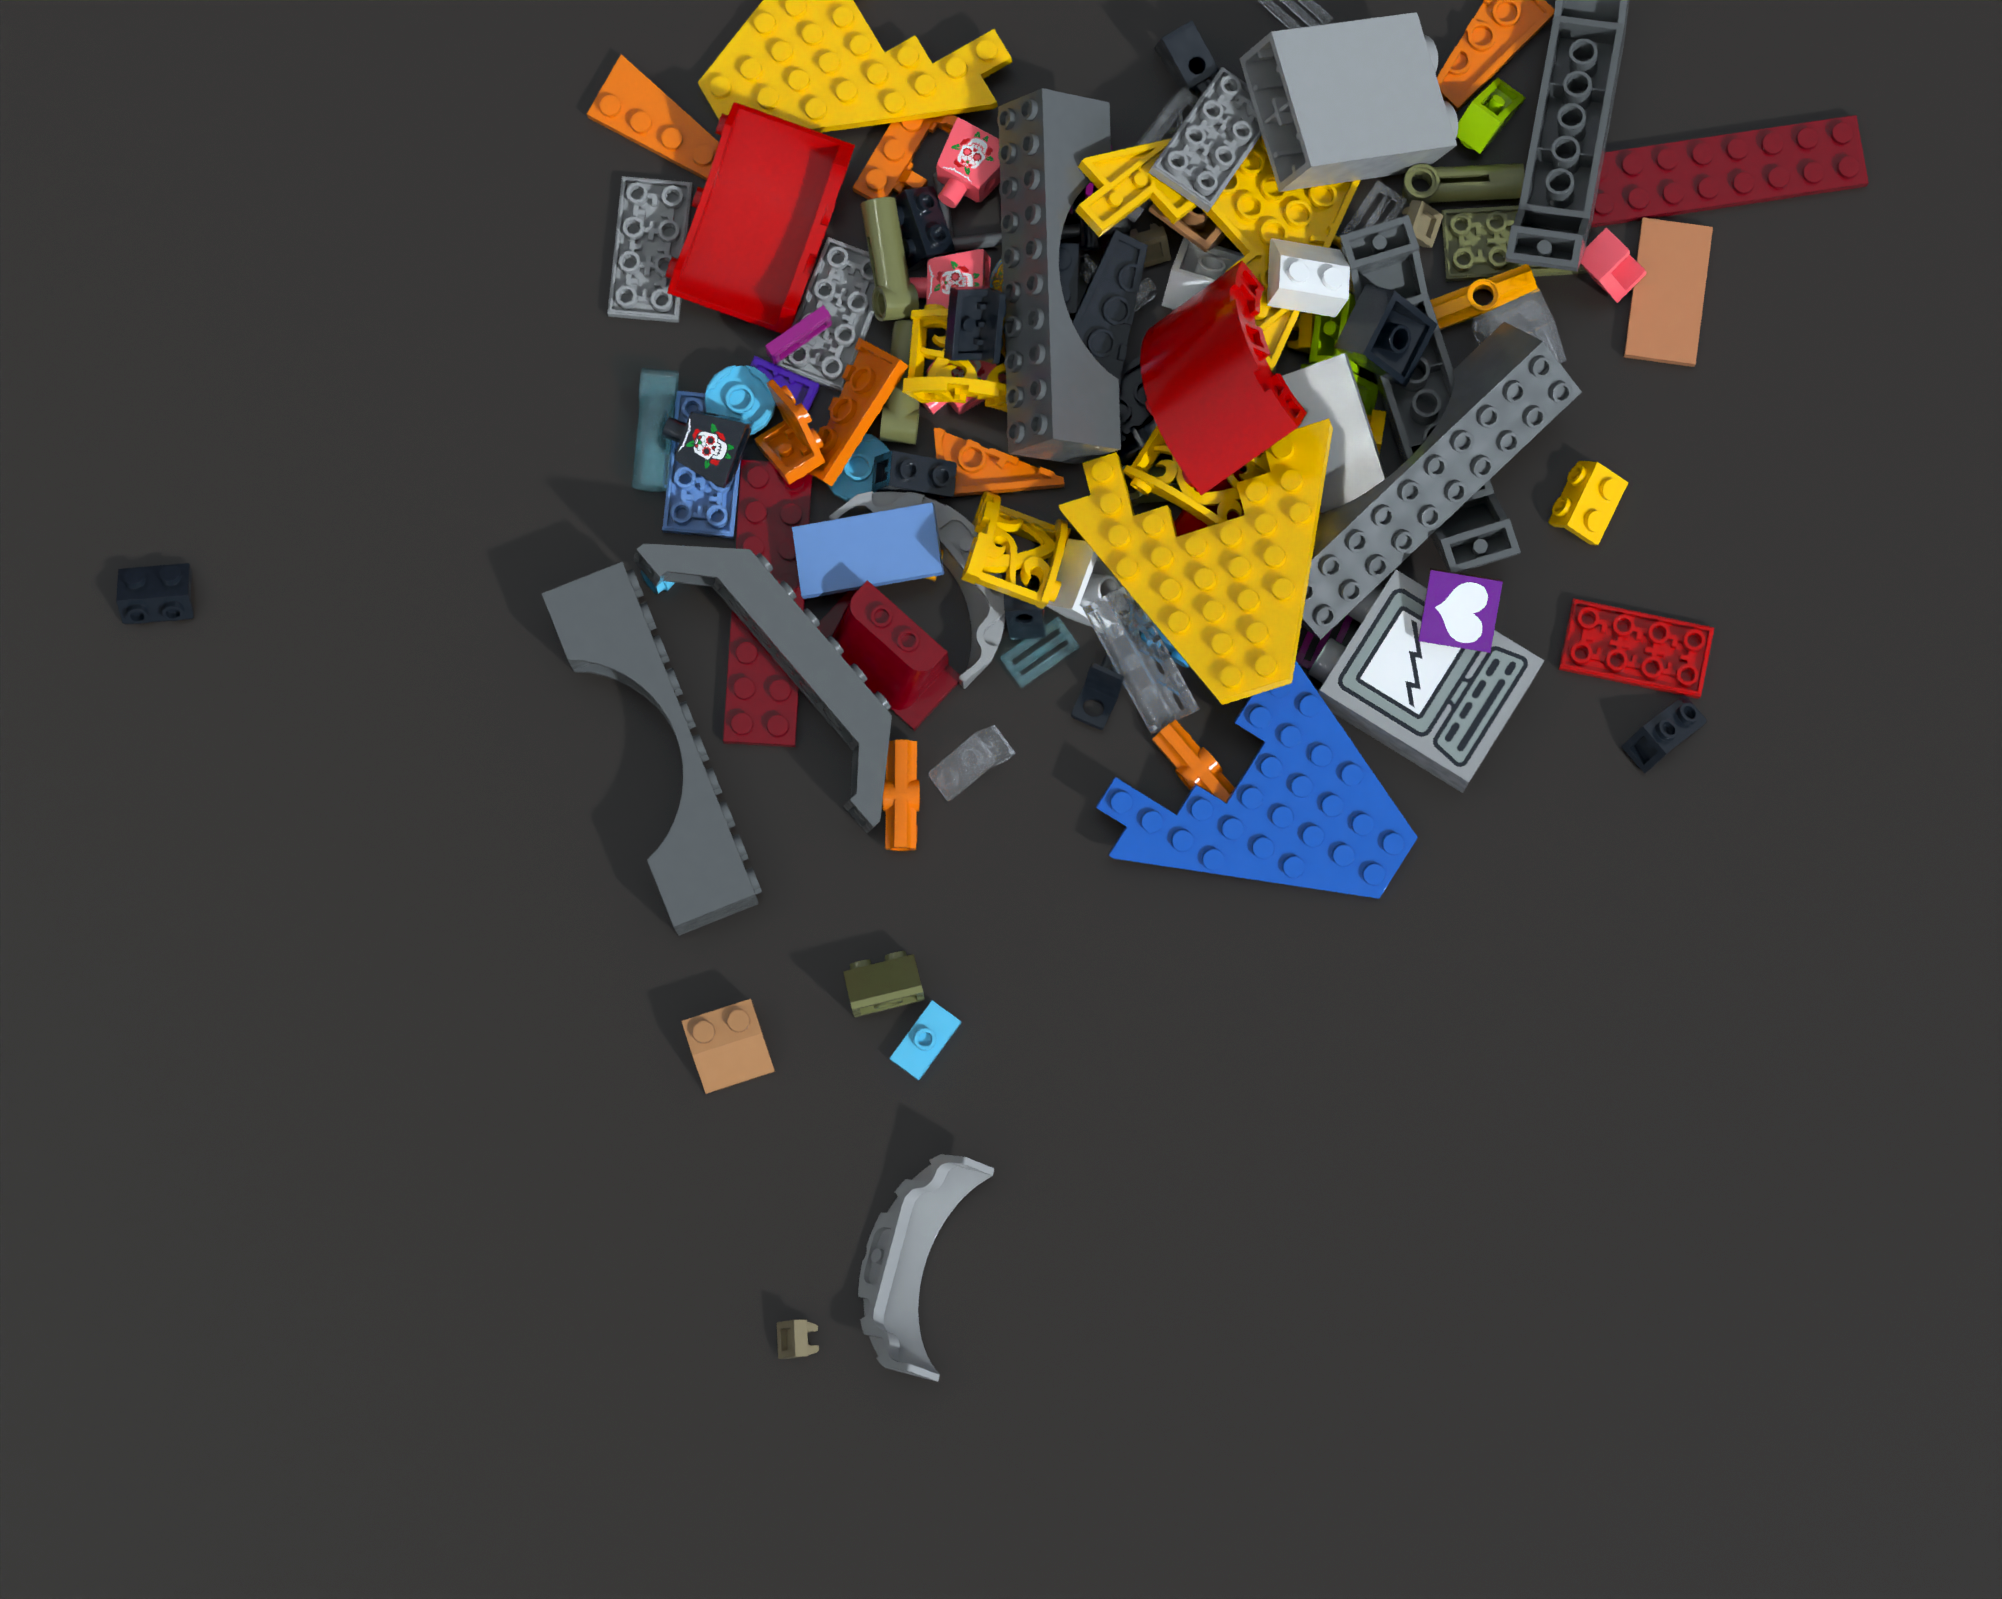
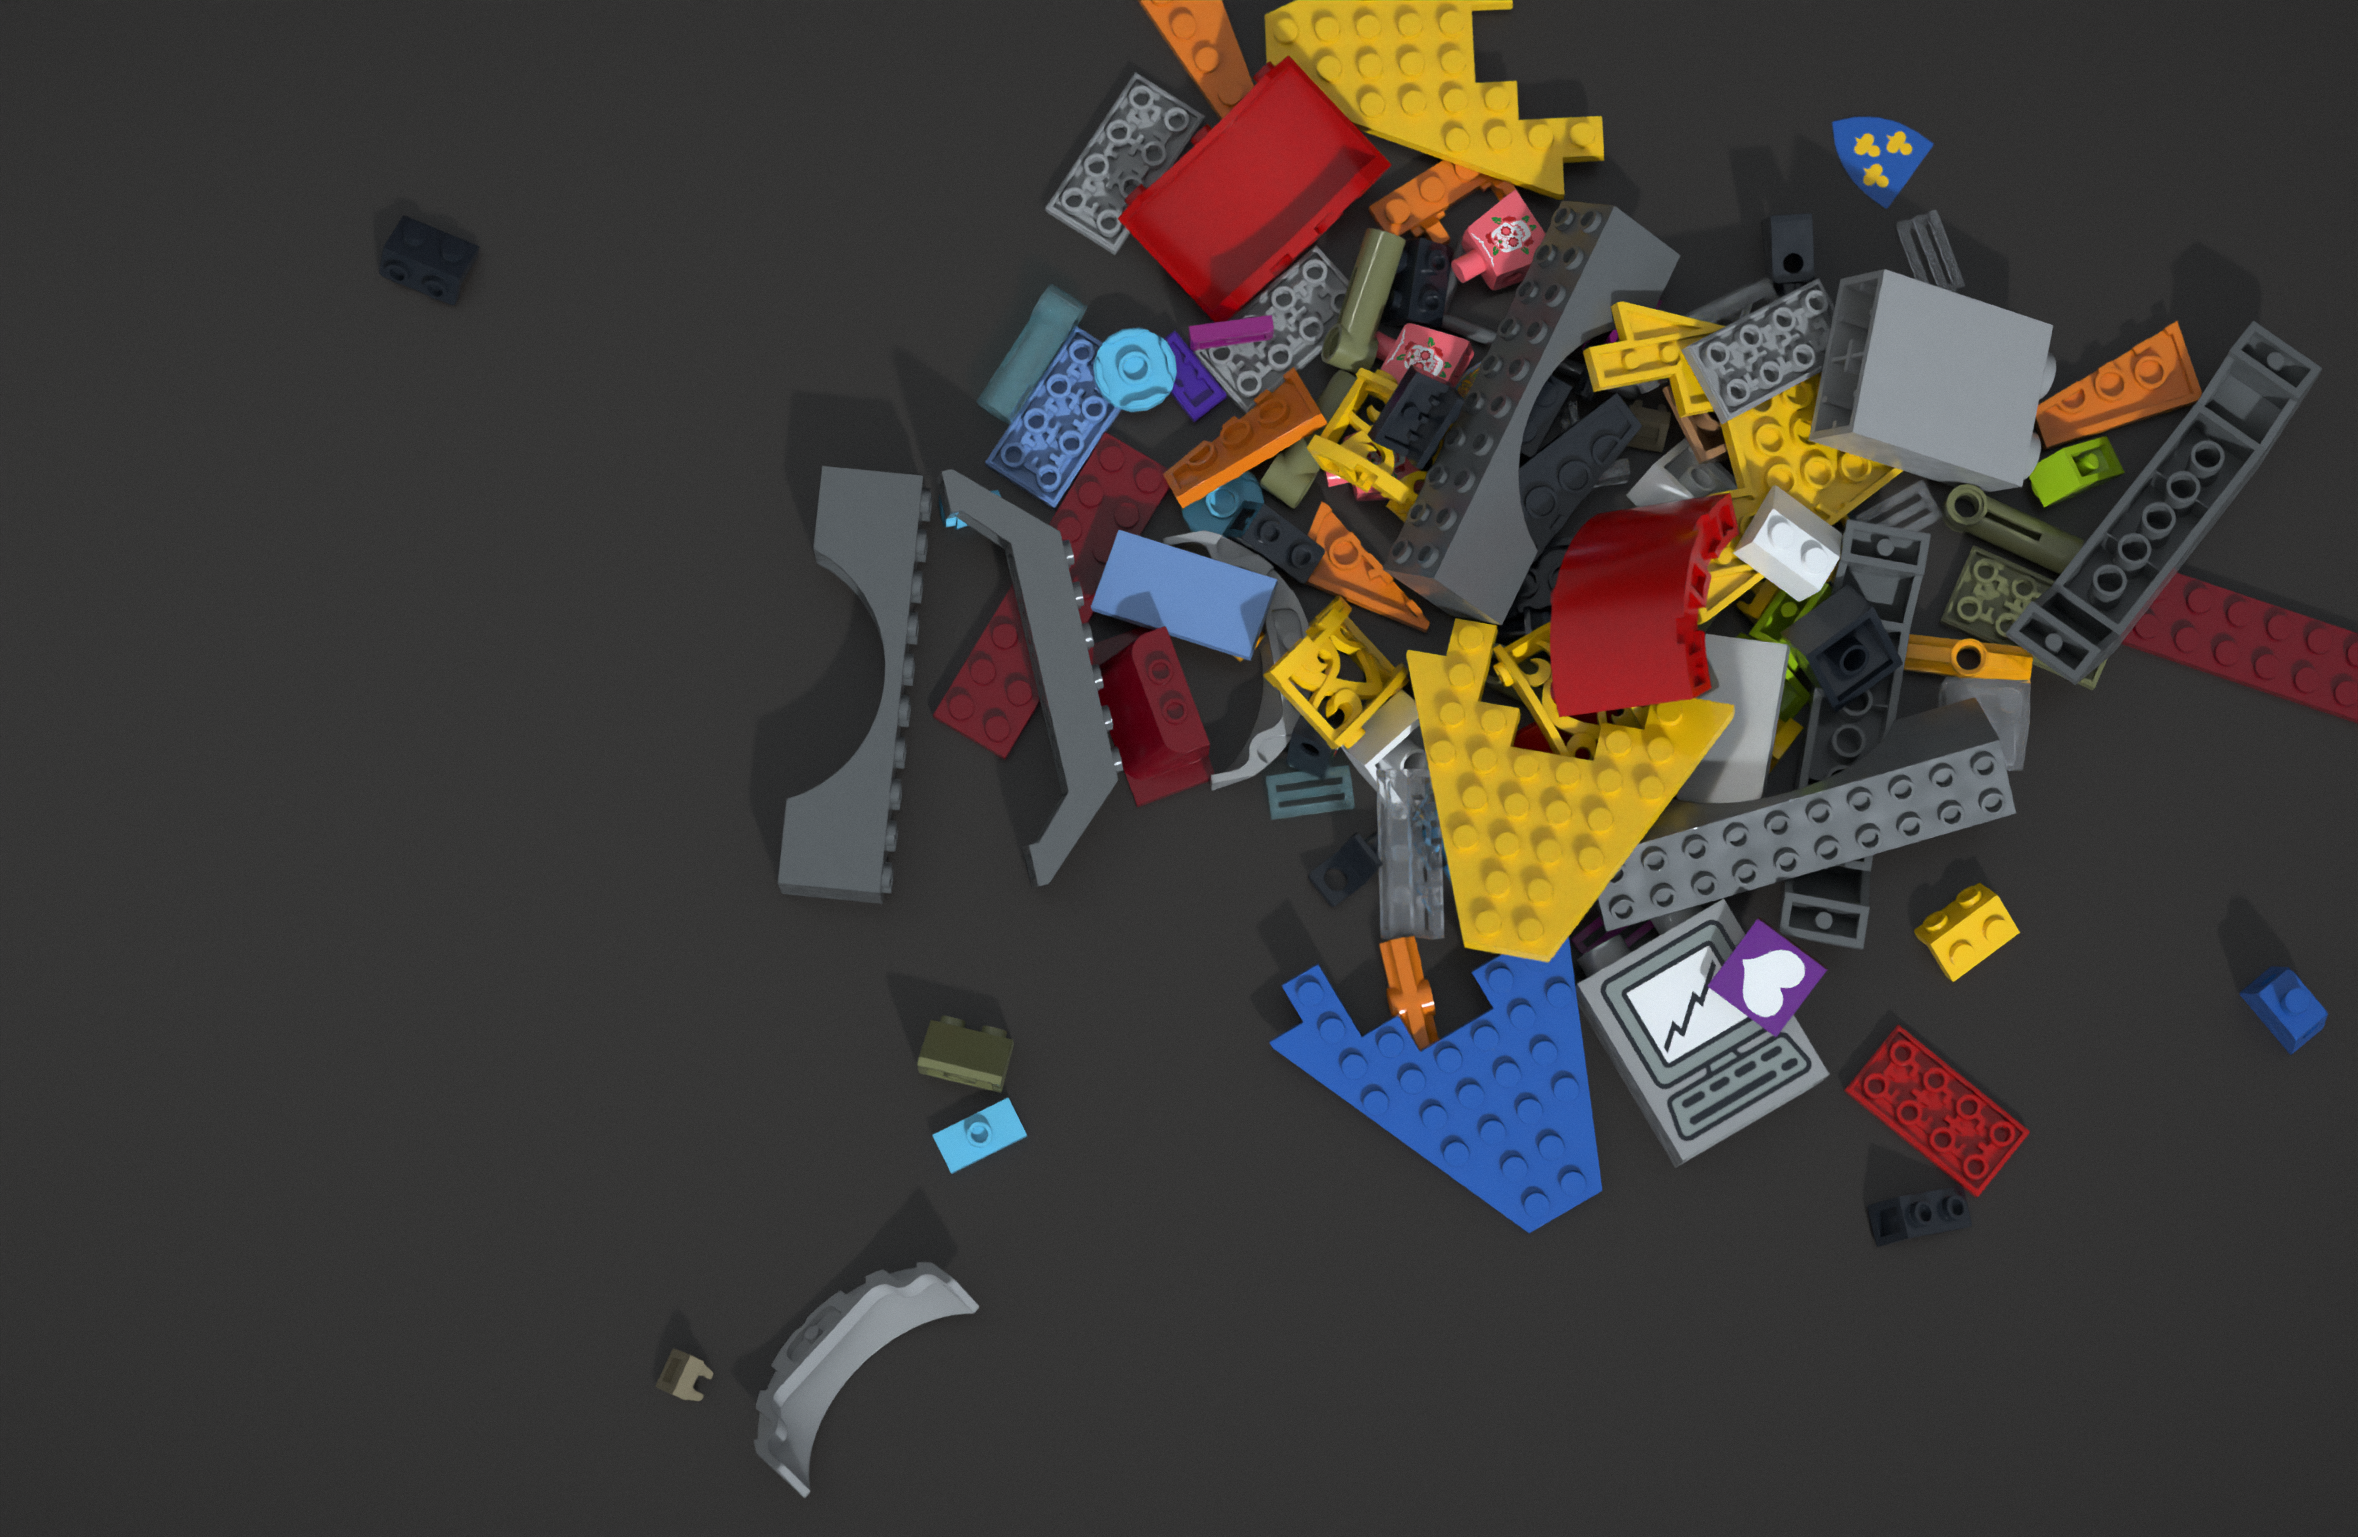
camera: 20 degrees right, 0 degrees up
(710, 444) = (1078, 399): black torso -> none
(728, 1046) = (772, 1035): medium nougat slope -> none
(791, 443) = (1163, 440): orange bracket -> none
(901, 796) = (1087, 867): orange piece -> none
(970, 761) = (1178, 869): clear bracket -> none
(1424, 222) = (1946, 549): dark tan tile -> none
(1612, 265) = (2120, 696): coral panel -> none
(1670, 297) = (2167, 754): nougat tile -> none
(1855, 435) = (2285, 1007): none -> blue torso

